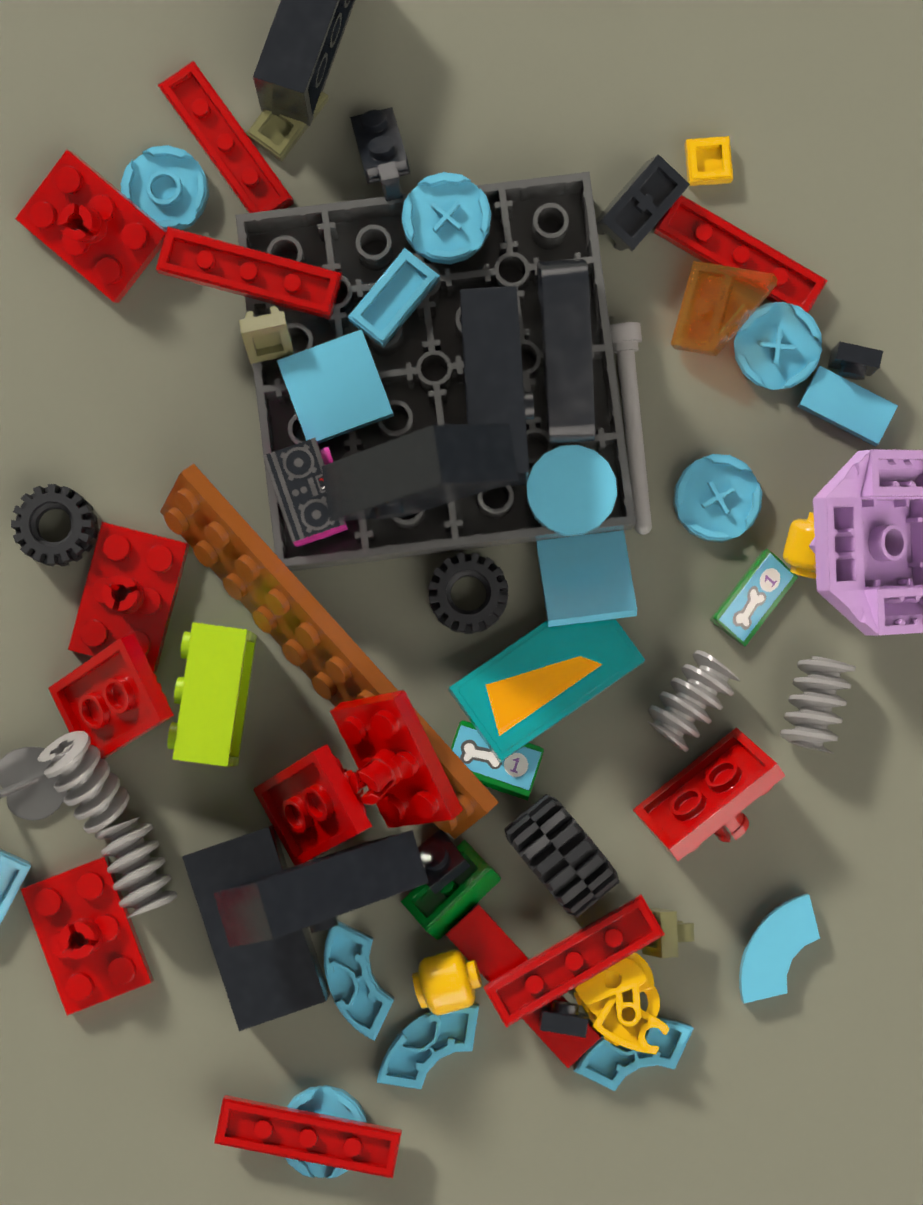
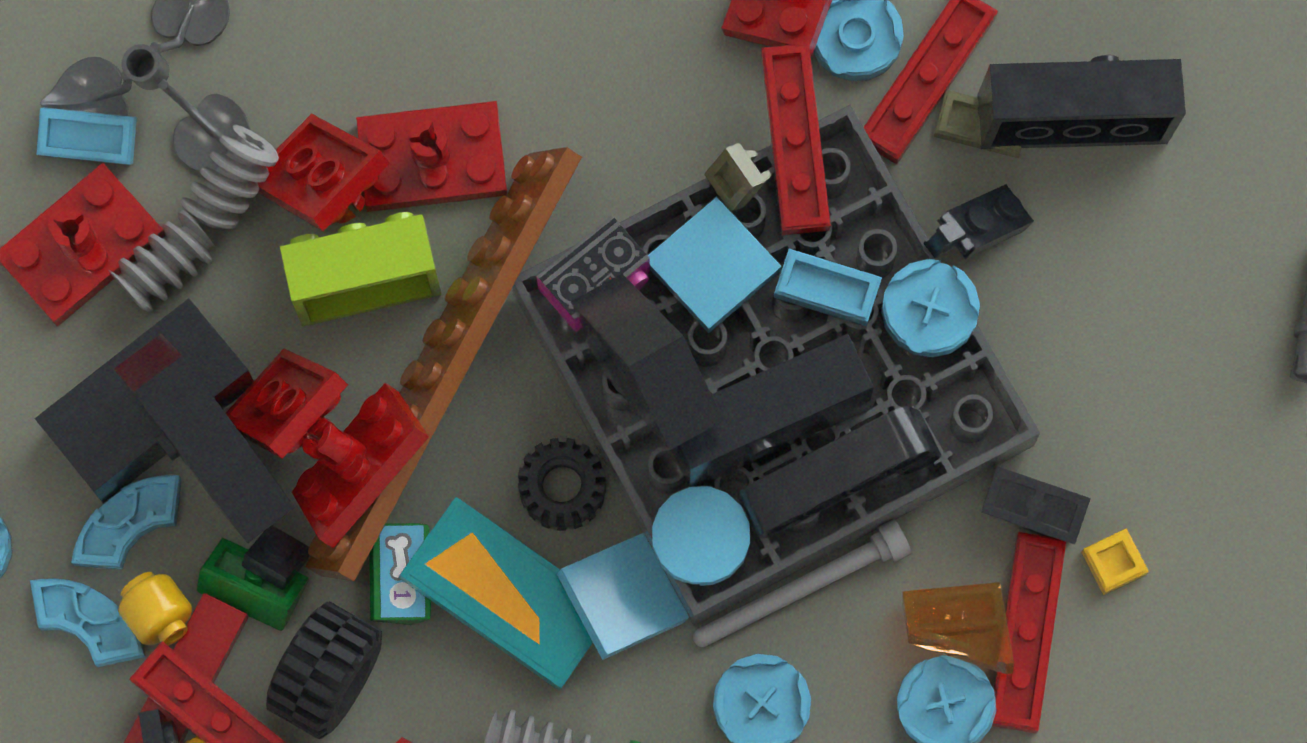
camera: 70 degrees right, 10 degrees down
(36, 506) = (475, 31): black tyre -> none

